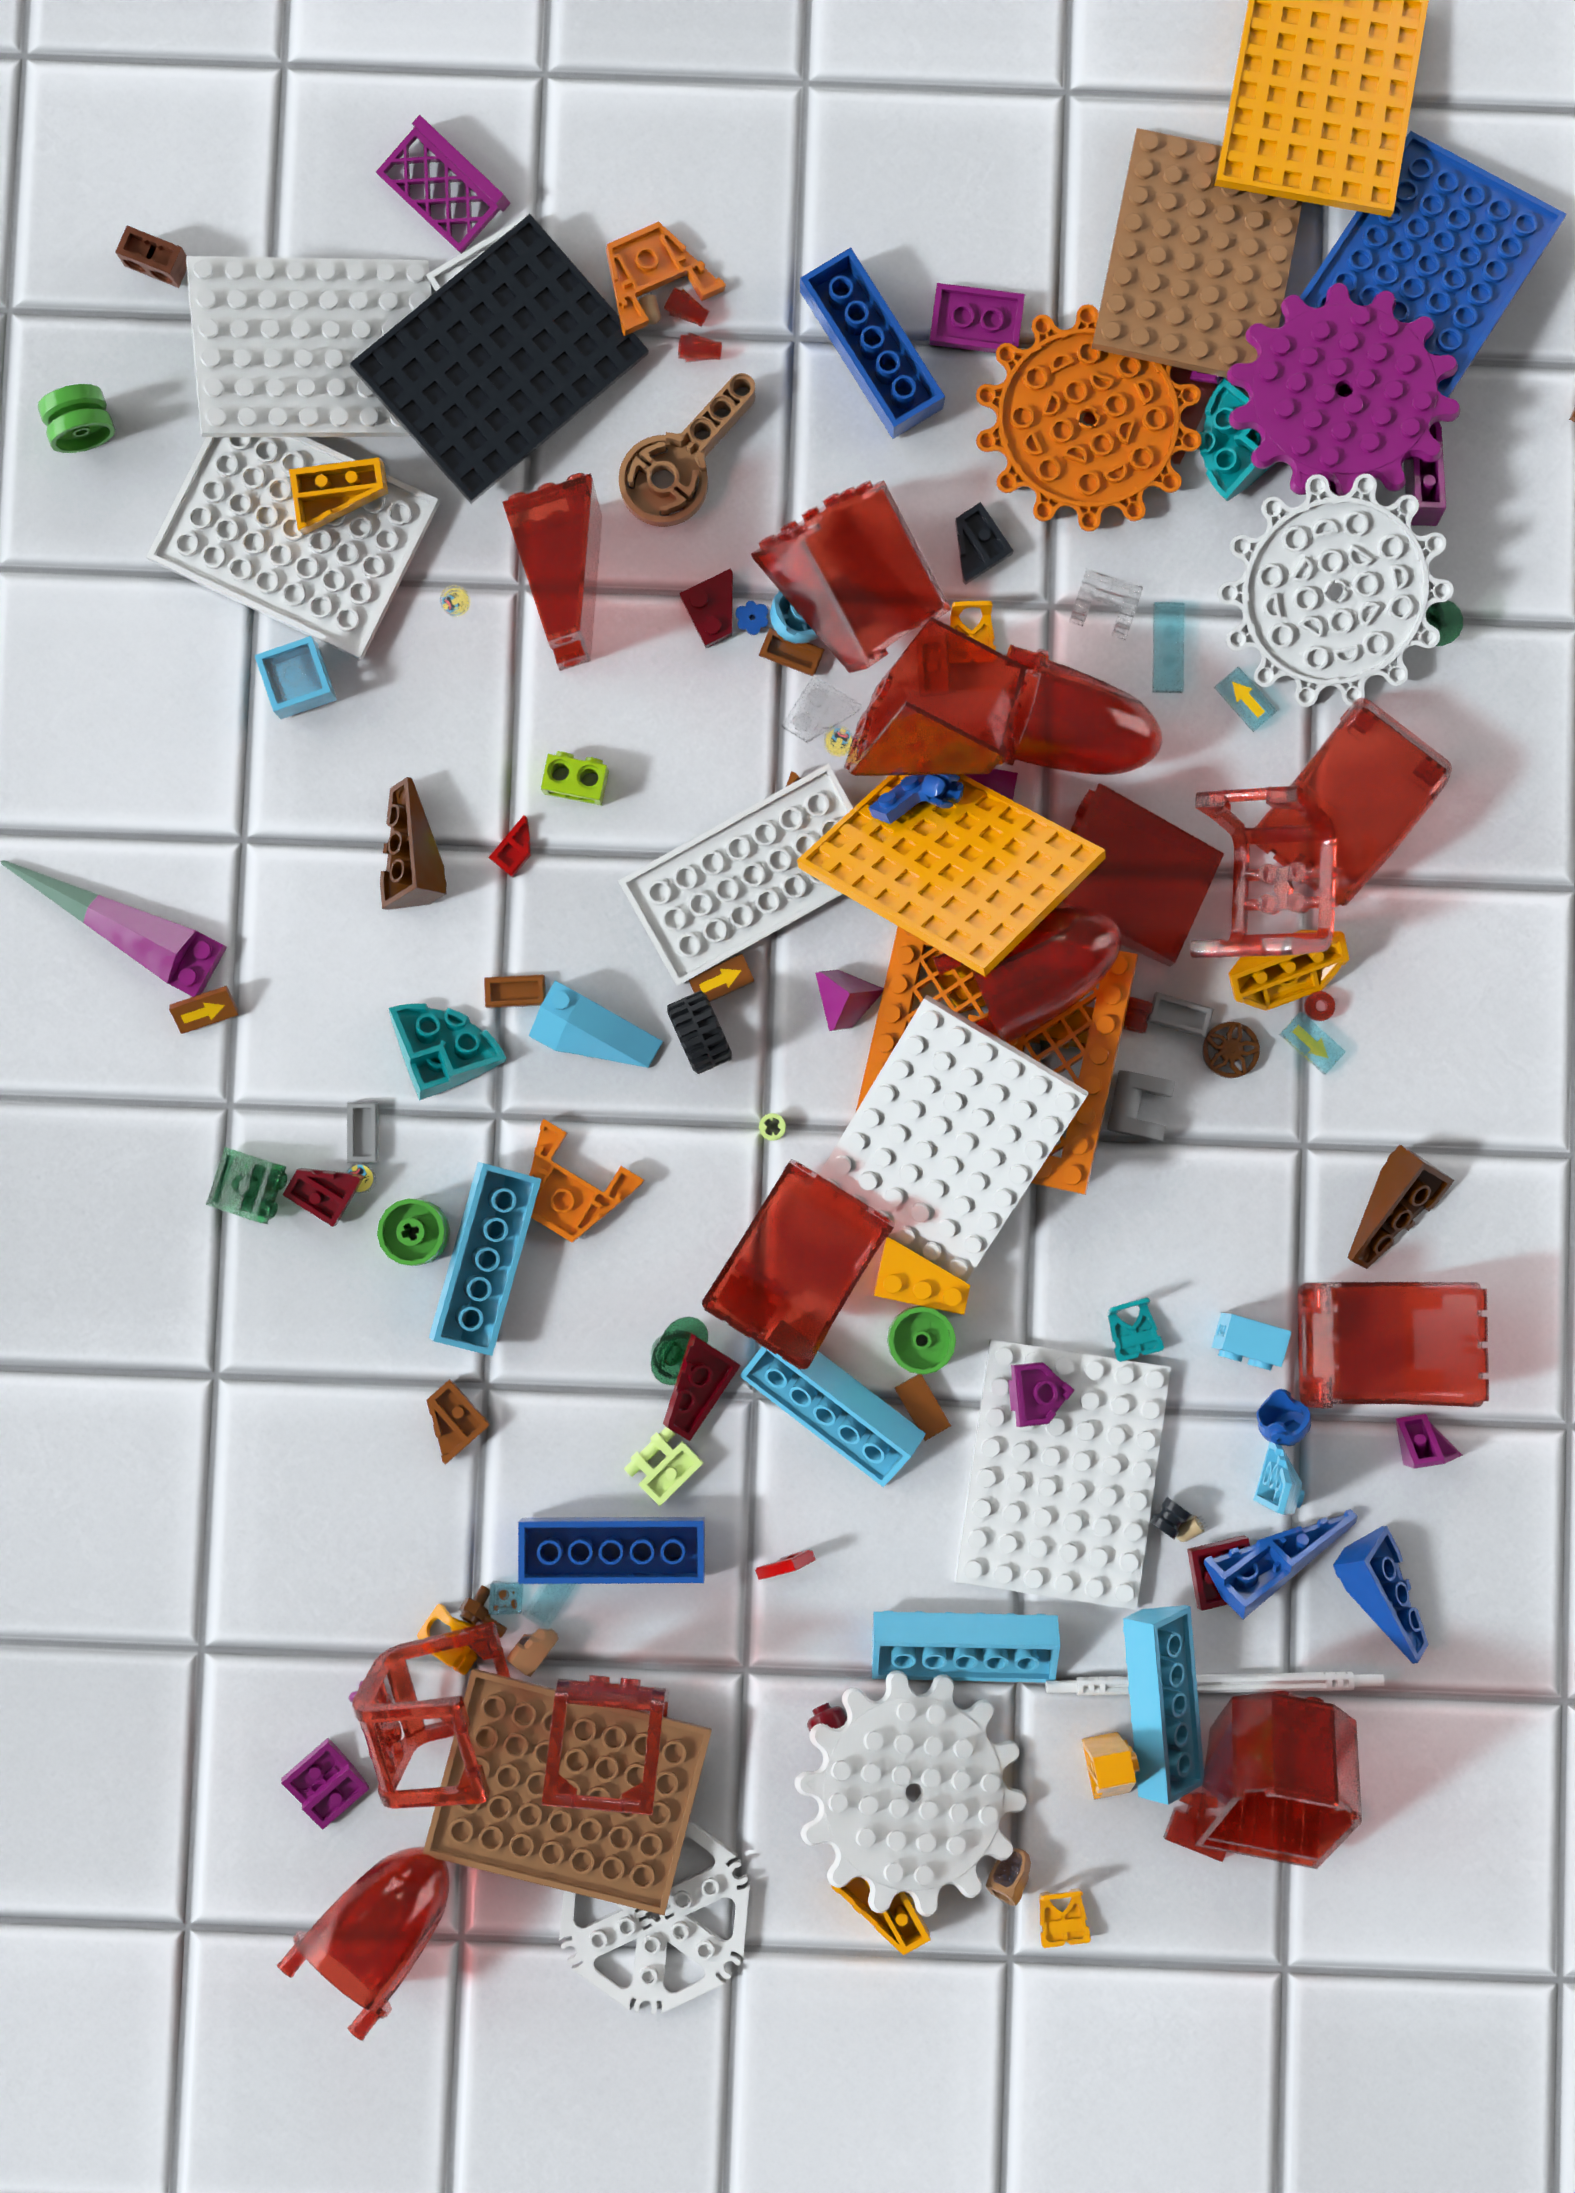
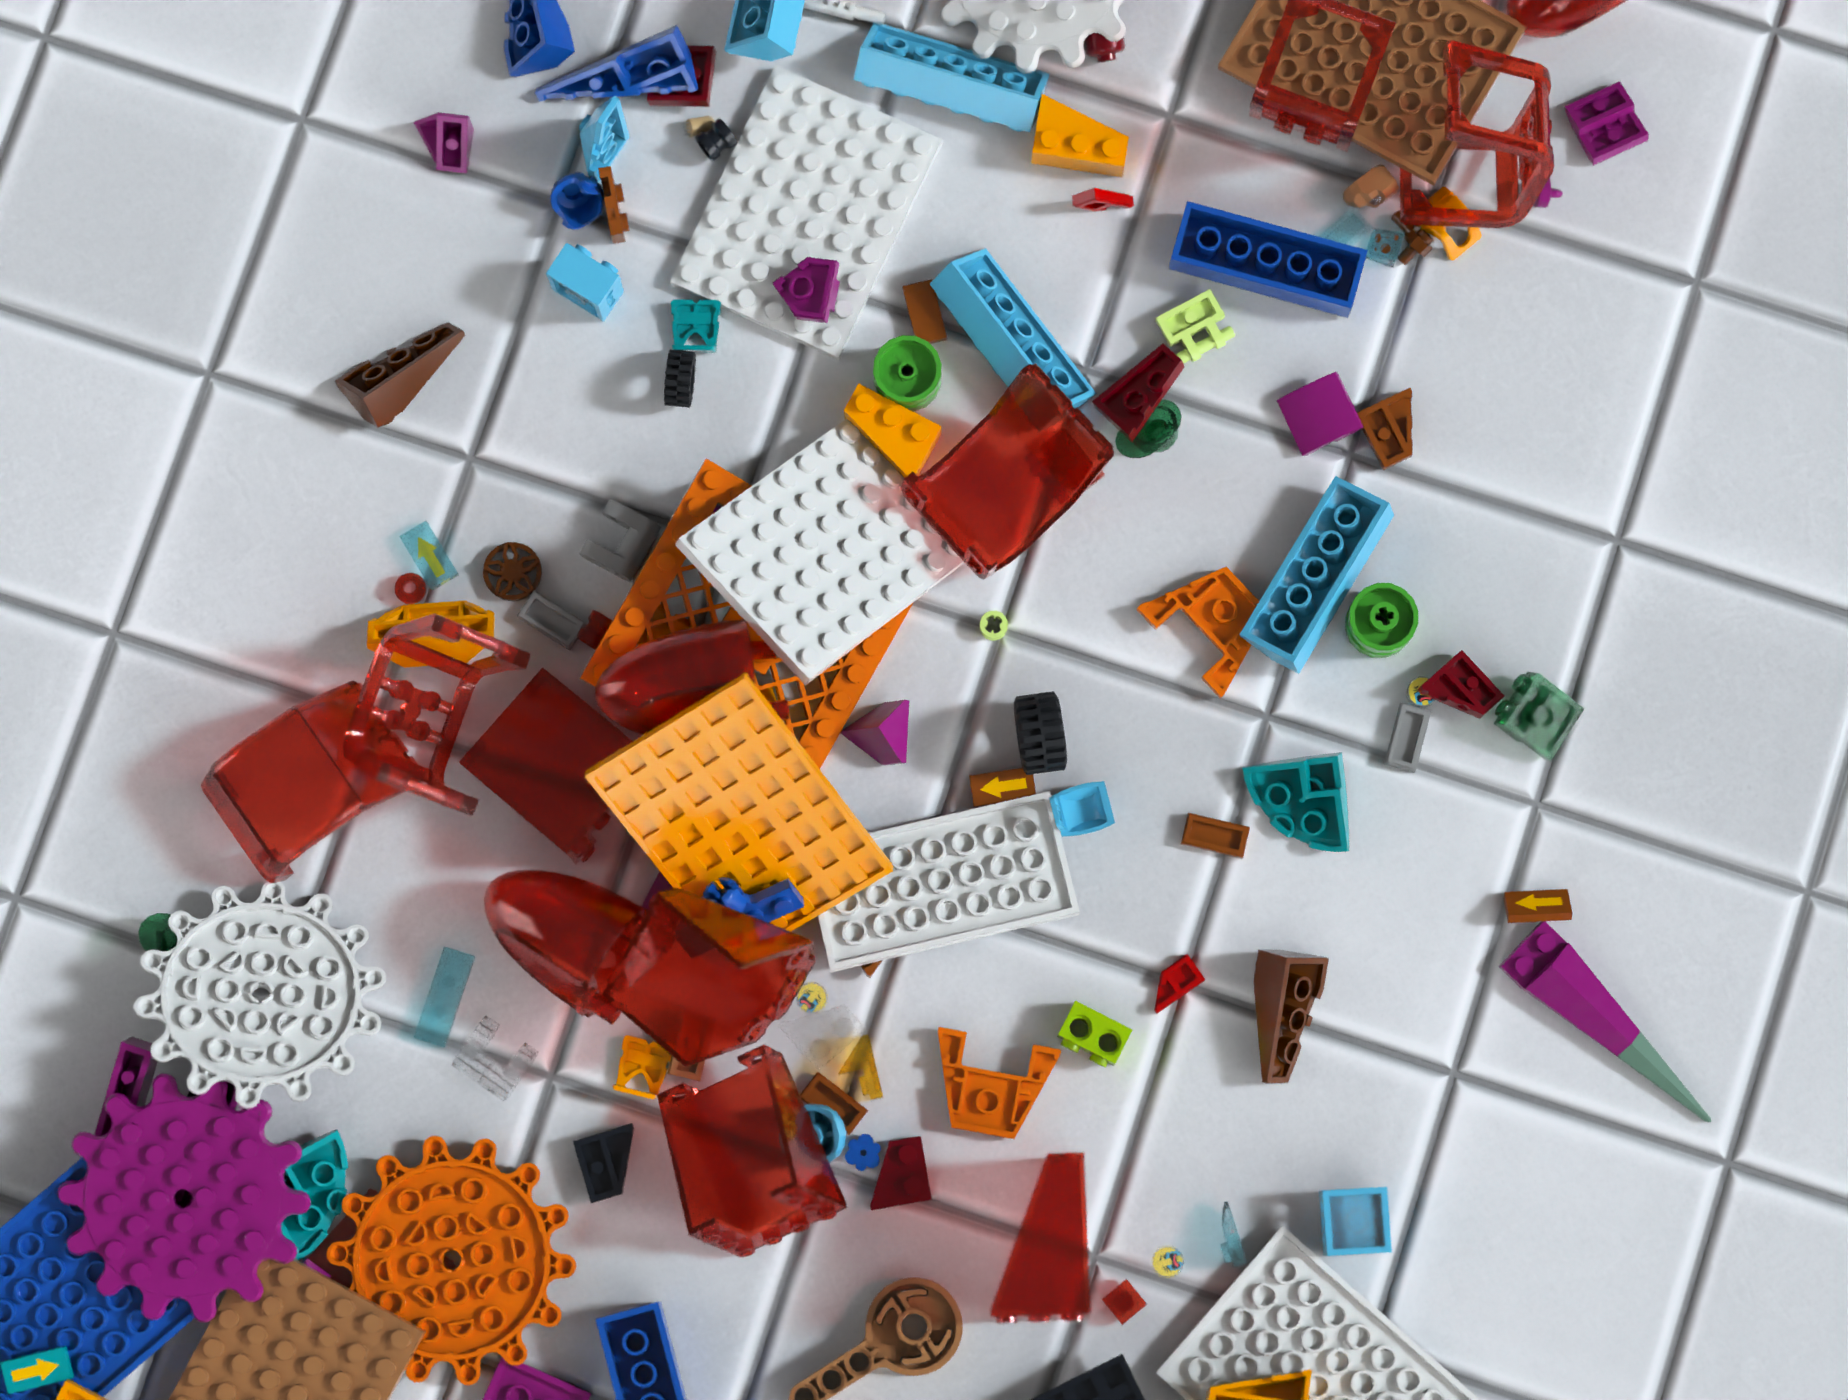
camera: 165 degrees left, 5 degrees down
(400, 626) = (1232, 1248): none -> clear light blue plate
(483, 553) = (1124, 1301): none -> clear red plate
(523, 1415) = (1319, 413): none -> magenta slope
(582, 1027) = (1153, 777): medium azure wedge -> none
(642, 977) = (1082, 809): none -> medium azure piece
(650, 695) = (989, 1099): none -> orange wing
(775, 695) = (863, 1059): none -> clear yellow slope
(826, 1616) = (1076, 141): none -> light orange wedge
(1133, 1272) = (679, 378): none -> black tyre
(1245, 699) = (383, 920): clear light blue tile -> none
(1250, 1435) = (612, 197): none -> dark orange wing
(1392, 1343) = (450, 240): clear red windscreen -> none
(1421, 216) = (37, 1369): none -> teal tile

